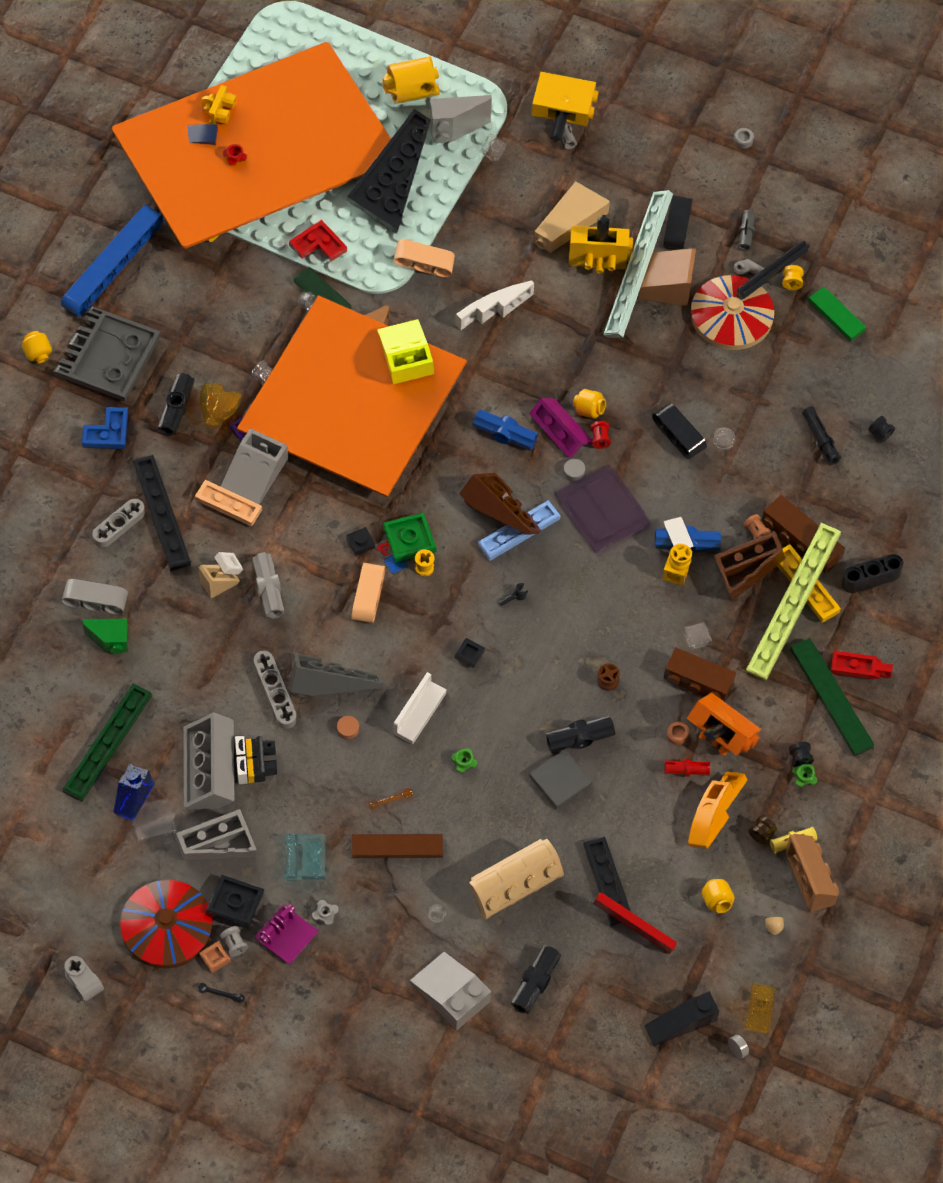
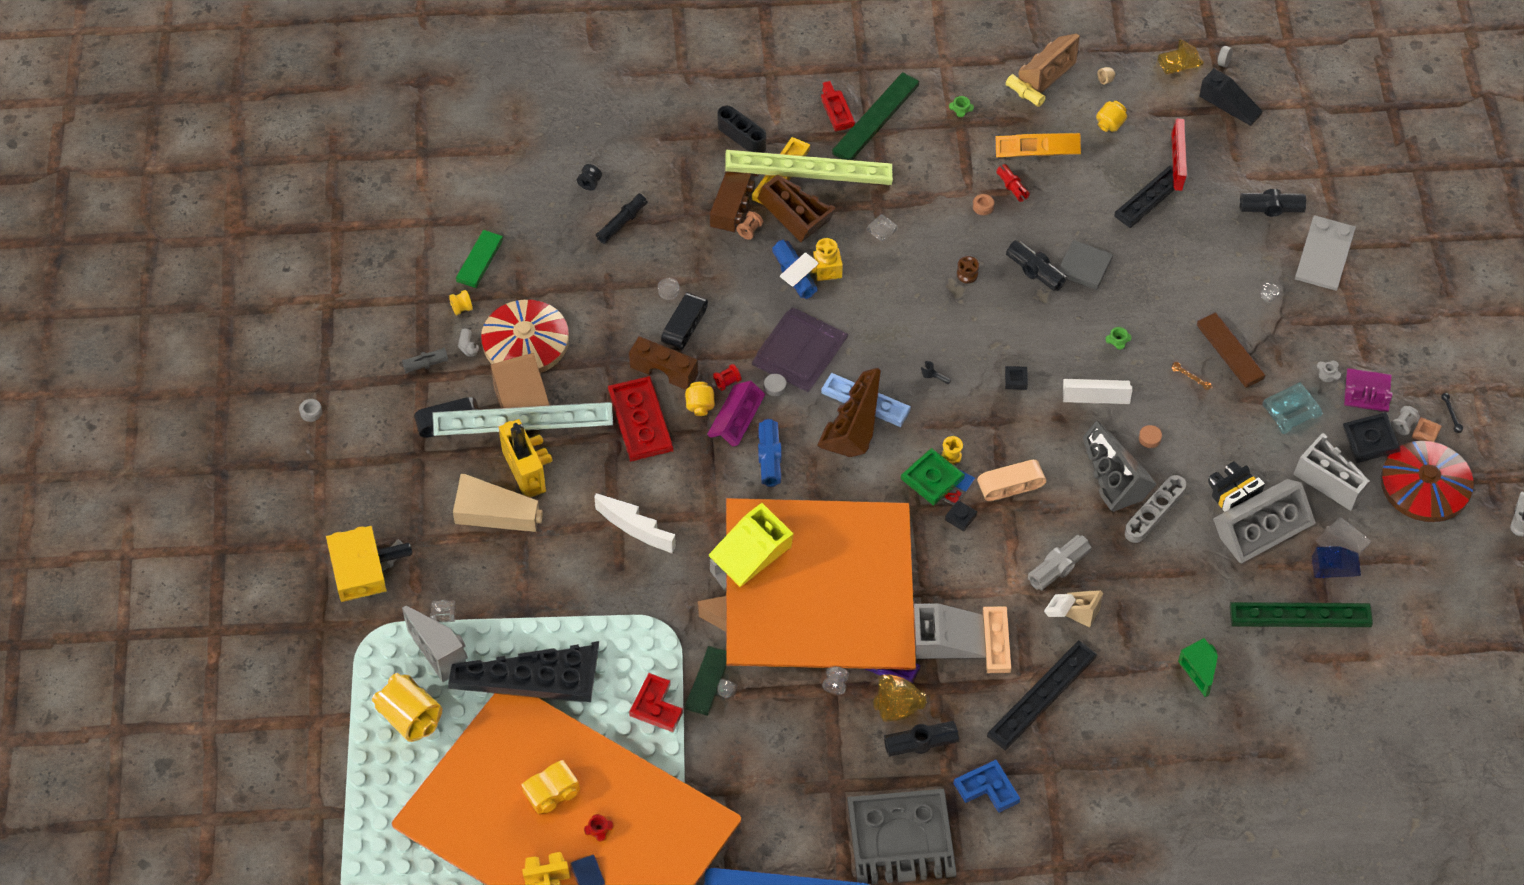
camera: 115 degrees left, 5 degrees down
(94, 596) = (1172, 699): light grey beam -> none
(115, 532) = (1082, 733): light grey beam -> none
(286, 138) = (551, 787): none -> yellow brick
(424, 258) = (619, 603): light nougat beam -> none
(516, 877) = (1206, 243): tan container -> none
(599, 358) = (640, 418): none -> red tile
(628, 399) = (679, 368): none -> reddish brown arch
(698, 674) = (923, 207): reddish brown brick -> none
(723, 725) = (965, 161): orange piece -> none
(762, 830) = (1032, 111): dark brown wheel -> none
(772, 270) = (463, 318): black axle -> none
(801, 754) = (947, 112): black wheel -> none

